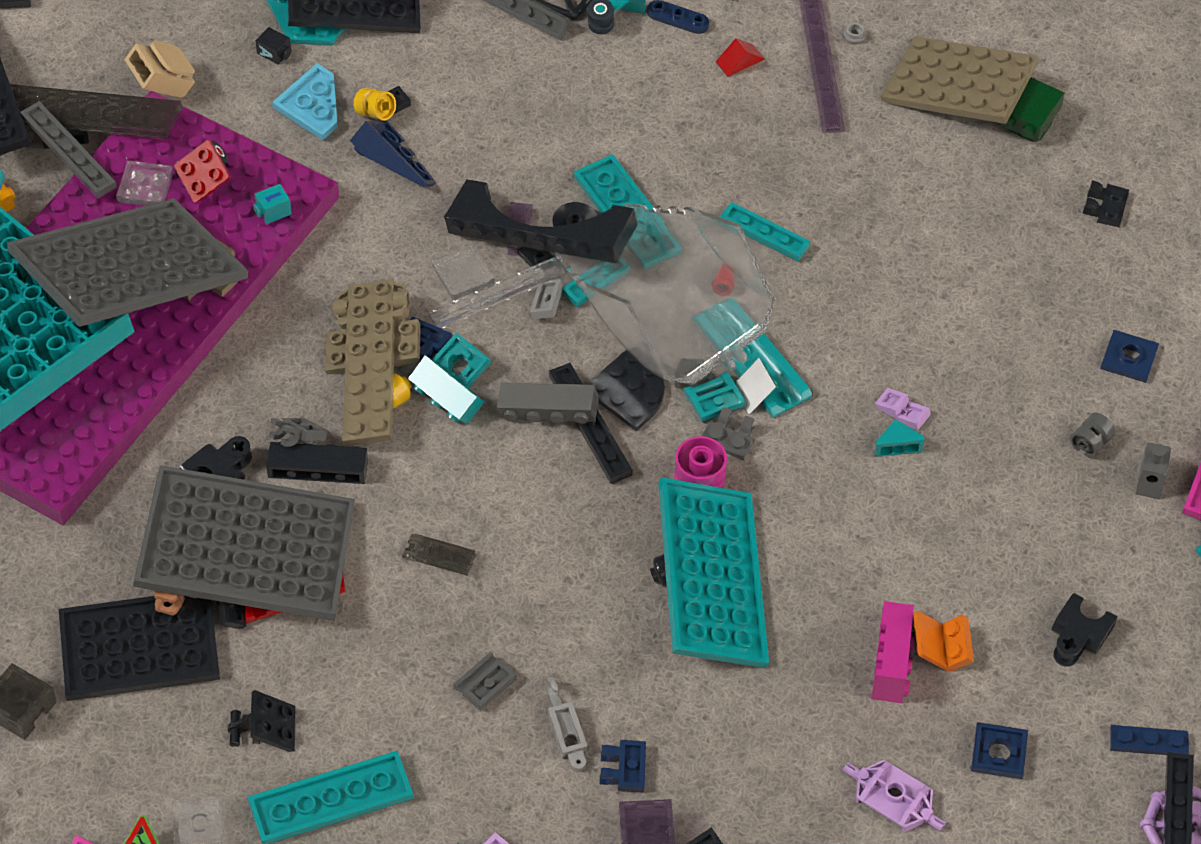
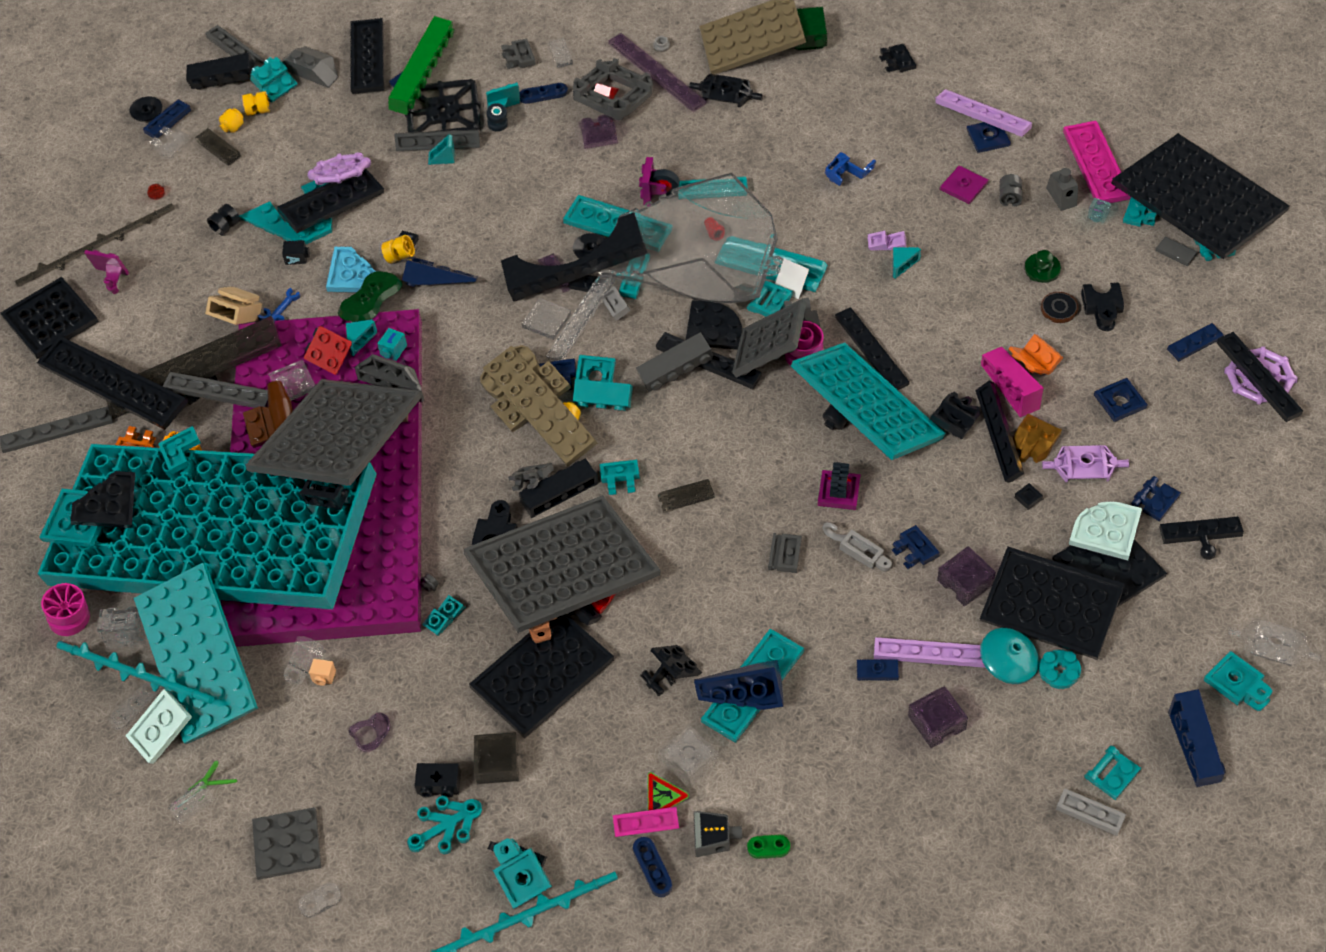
camera: 30 degrees left, 0 degrees up
(55, 321) = (324, 495): none -> black hinge
(83, 206) = (264, 421): none -> reddish brown plate
(92, 525) = (444, 616): none -> teal slope
(110, 480) = (429, 582): none -> dark grey plate
(197, 103) = (276, 314): none -> blue bar
(243, 237) = (388, 373): none -> dark grey wedge
(249, 173) = (360, 334): none -> teal slope
(288, 143) = (368, 299): none -> dark green plate
(320, 795) = (750, 686): none -> dark blue wedge
(393, 484) = (620, 471): none -> teal plate
(514, 23) = (443, 152): none -> teal slope
(602, 649) = (839, 487): none -> magenta plate
(662, 437) = (769, 338): none -> dark grey plate
(696, 94) = (598, 131): none -> clear purple bracket
(702, 188) = (656, 181): none -> plate
(734, 78) = (640, 91): none -> dark grey plate
(776, 520) = (871, 348): none -> black plate
(797, 790) = (1028, 496): none -> black plate
(798, 650) = (956, 415): none -> black plate
(829, 699) = (999, 432): none -> black plate
(861, 732) = (1035, 438): none -> pearl gold plate
(885, 139) = (737, 92): none -> black plate
(926, 288) = (841, 164): none -> blue piece
(1028, 603) = (1059, 307): none -> black tile
(1049, 396) = (964, 184): none -> magenta plate
(1051, 545) = (1042, 266): none -> dark green plate
(1144, 326) = (984, 113): none -> lavender plate
(1175, 520) = (1099, 210): none -> clear light blue plate

